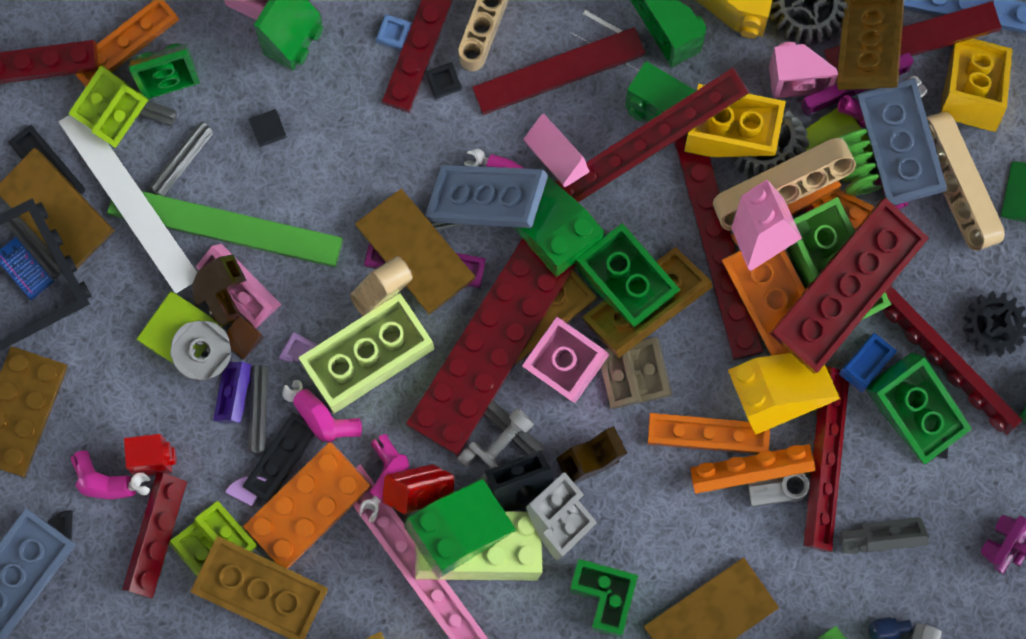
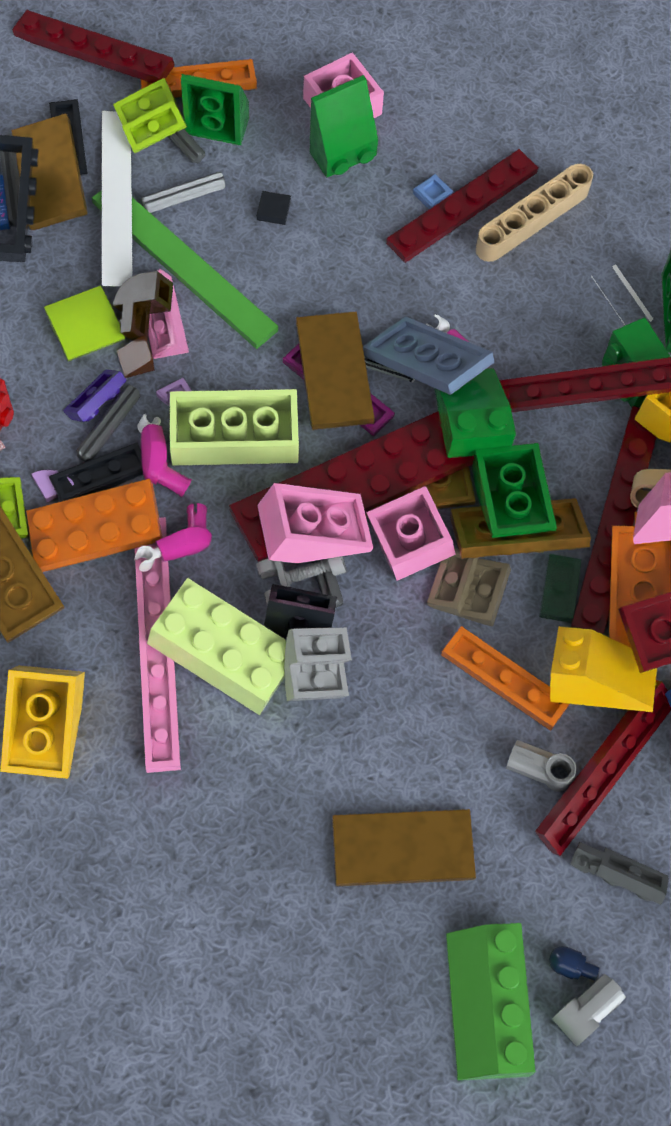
camera: 25 degrees right, 10 degrees down
(199, 333) = (100, 329): light grey plate -> none
(381, 285) = (282, 359): tan beam -> none
(416, 488) = (201, 563): red brick -> none
(443, 80) = (451, 252): black tile -> none
(458, 527) = (212, 609): green slope -> none
(488, 403) = (312, 524): none -> bright pink slope
(556, 151) = (515, 355): bright pink slope -> none
(558, 71) = (559, 298): dark red tile -> none
(592, 456) = (382, 634): dark brown brick -> none
(612, 590) = (321, 765): green brick -> none
(707, 332) = (560, 588): none -> clear green plate
(752, 468) = (540, 733): orange plate -> none

